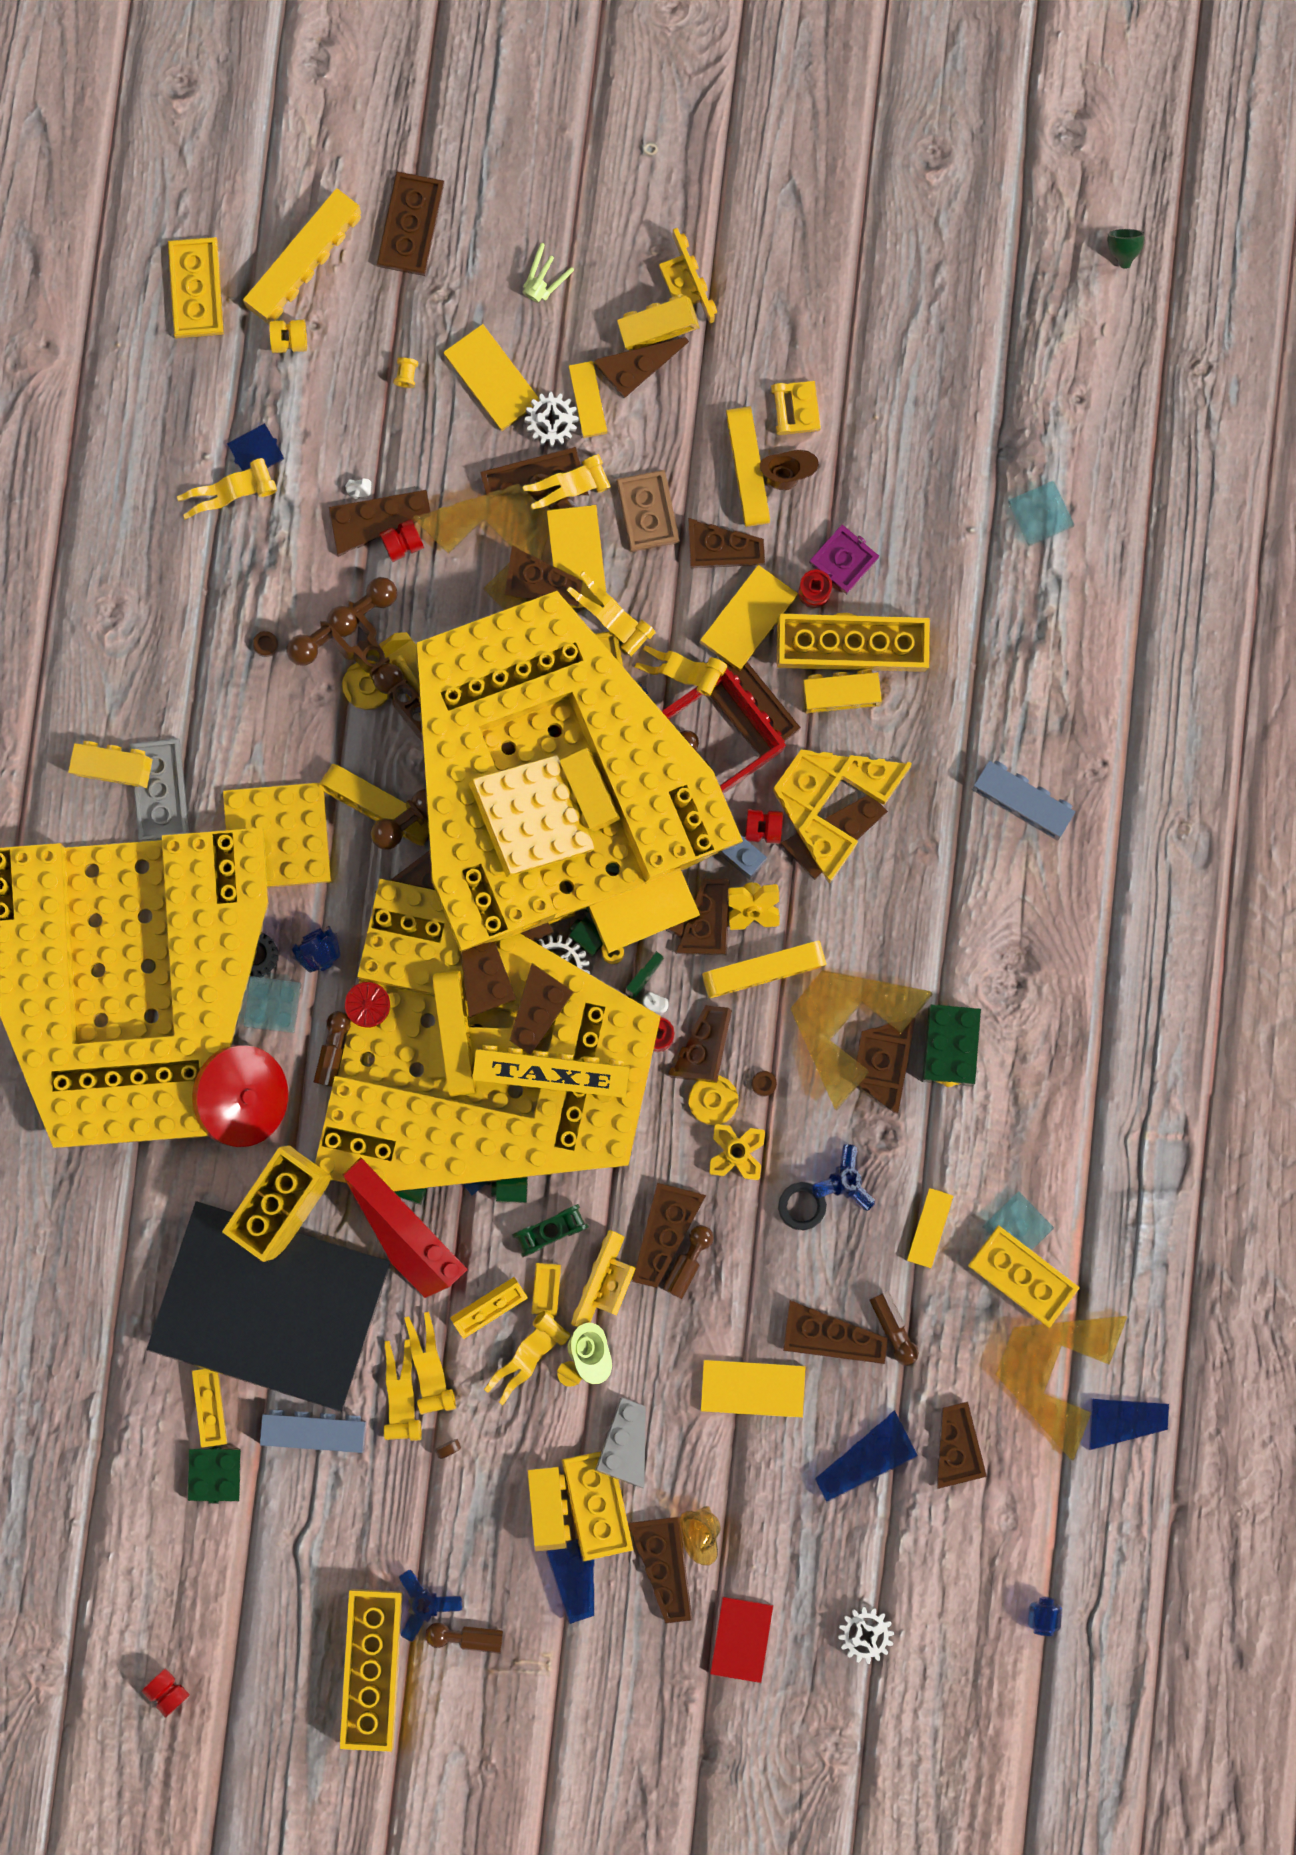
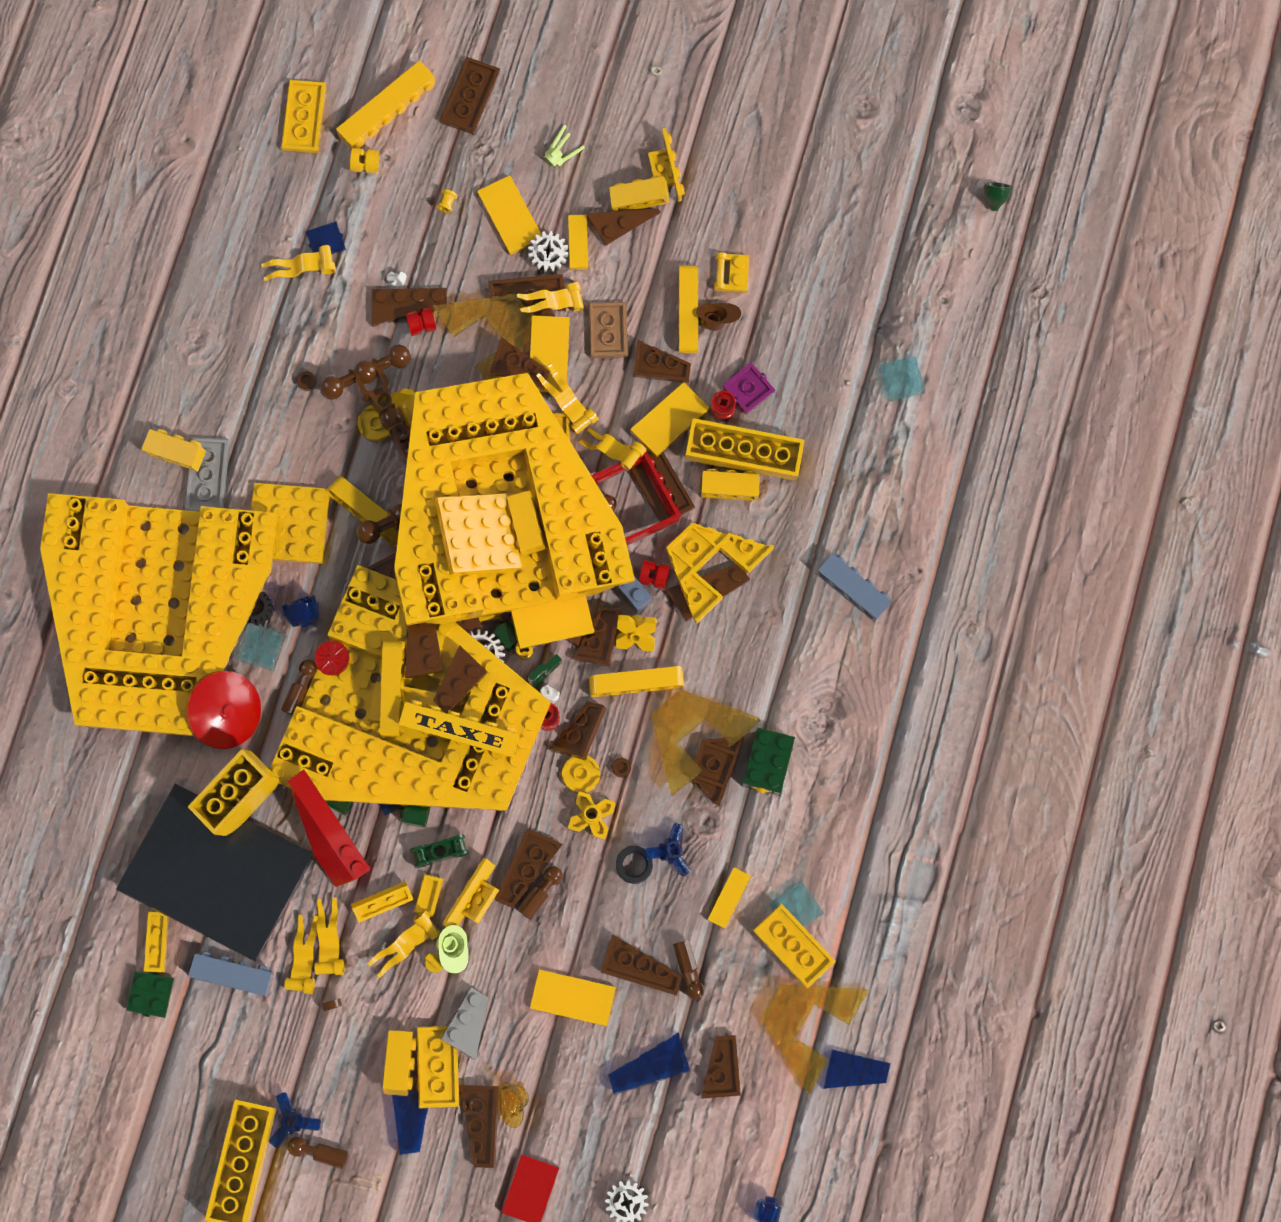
camera: 10 degrees right, 5 degrees down
(165, 1693) = (80, 1155): red wheel -> none

